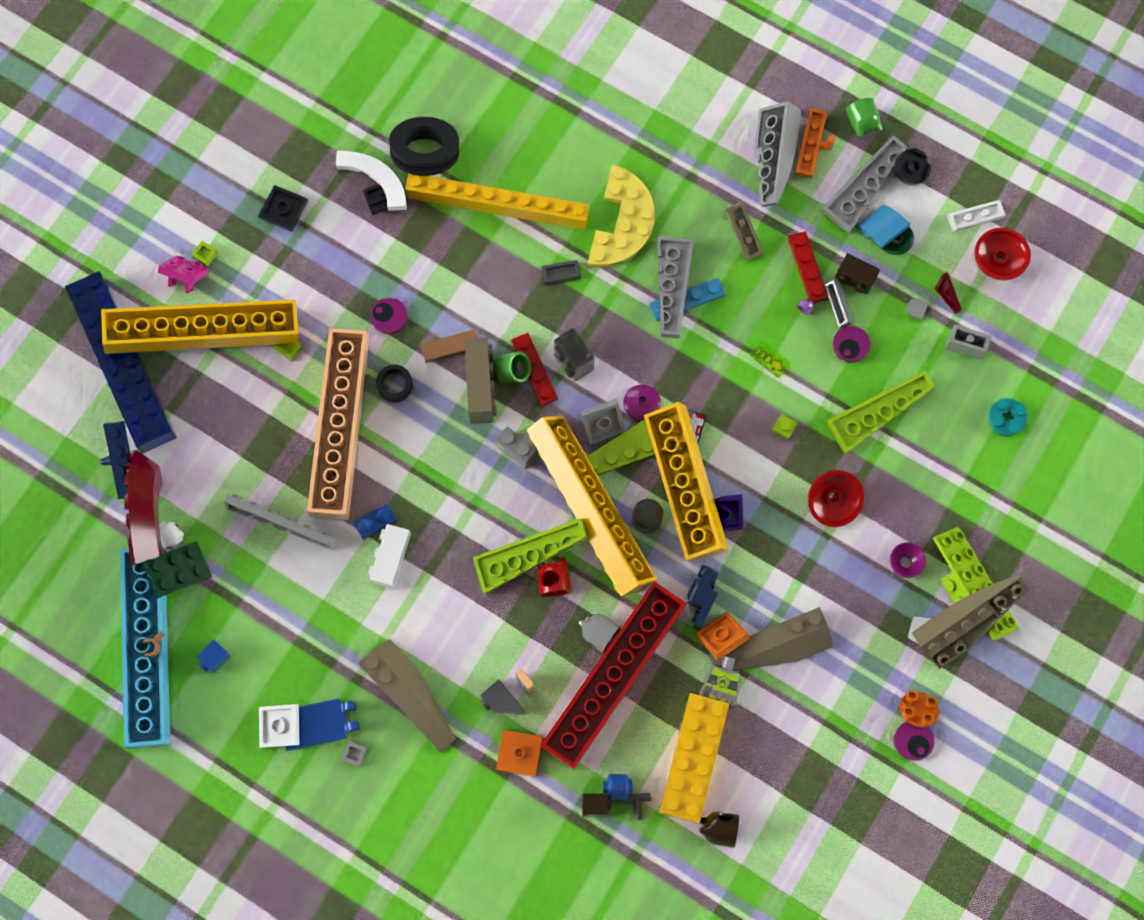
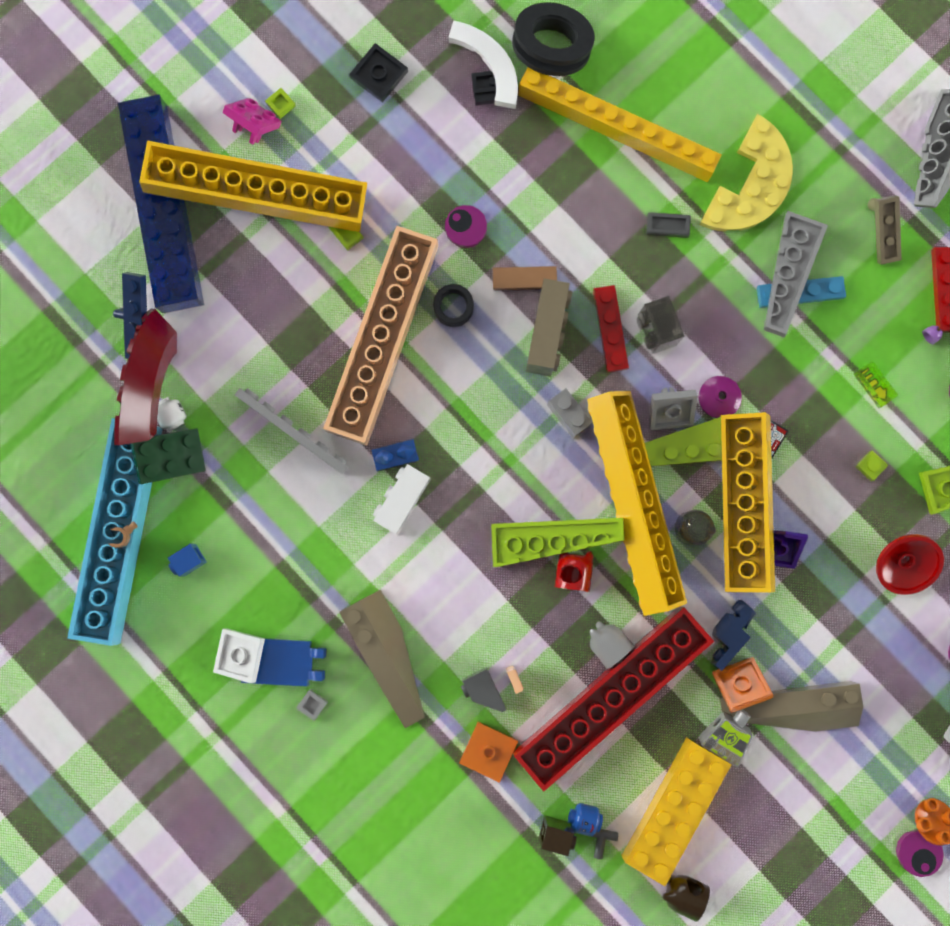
camera: 15 degrees right, 10 degrees up
(506, 366) = (580, 319): bright green piece -> none

